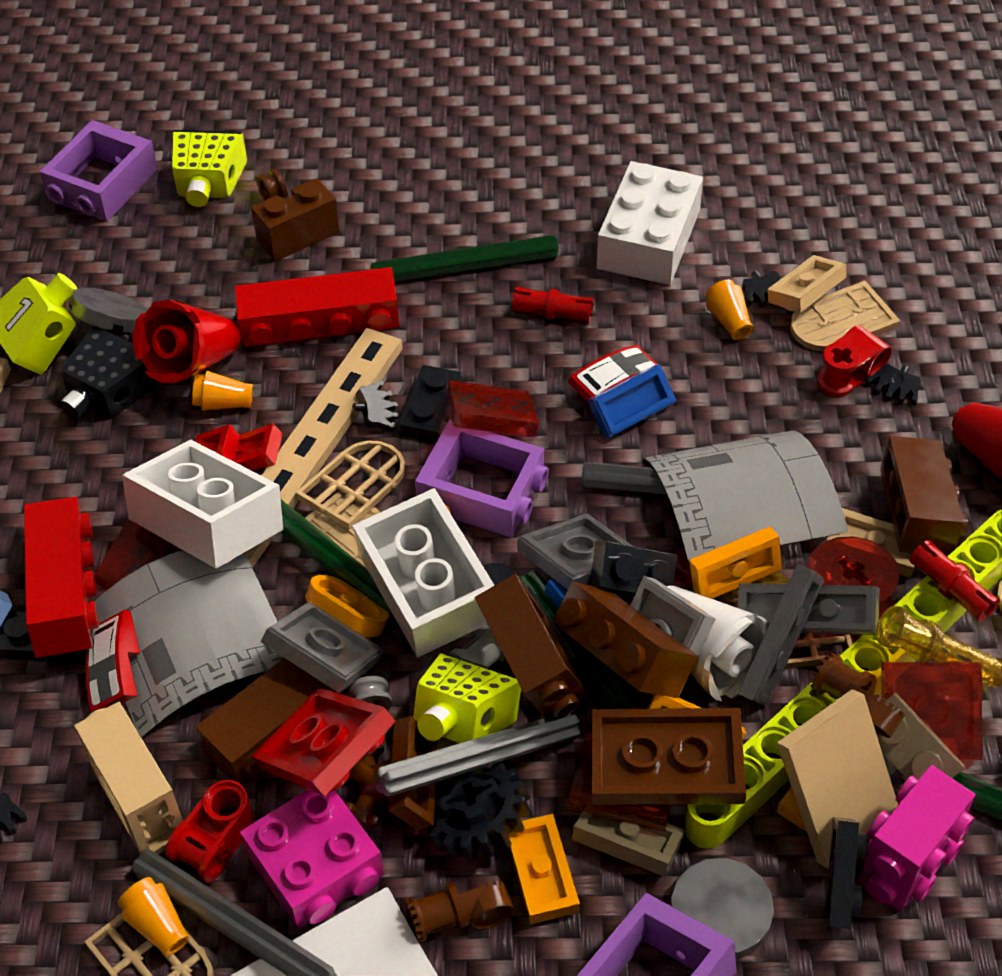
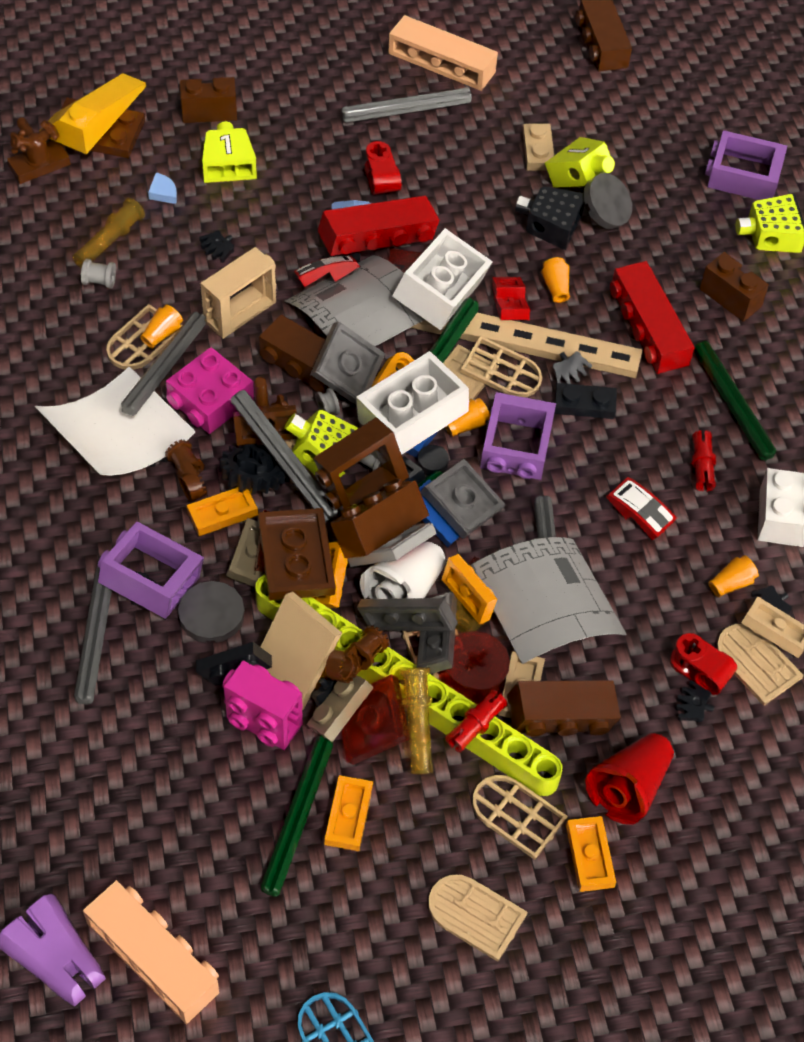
camera: 75 degrees right, 5 degrees up
(182, 340) = (582, 244): red cone -> none
(206, 837) = (227, 341): red piece -> none
(271, 185) = (766, 267): reddish brown bush -> none
(324, 740) = (265, 366): red plate -> none
(492, 409) = (577, 428): clear red tile -> none
(623, 566) = (450, 526): black plate -> none
(631, 400) = (617, 519): blue tile -> none

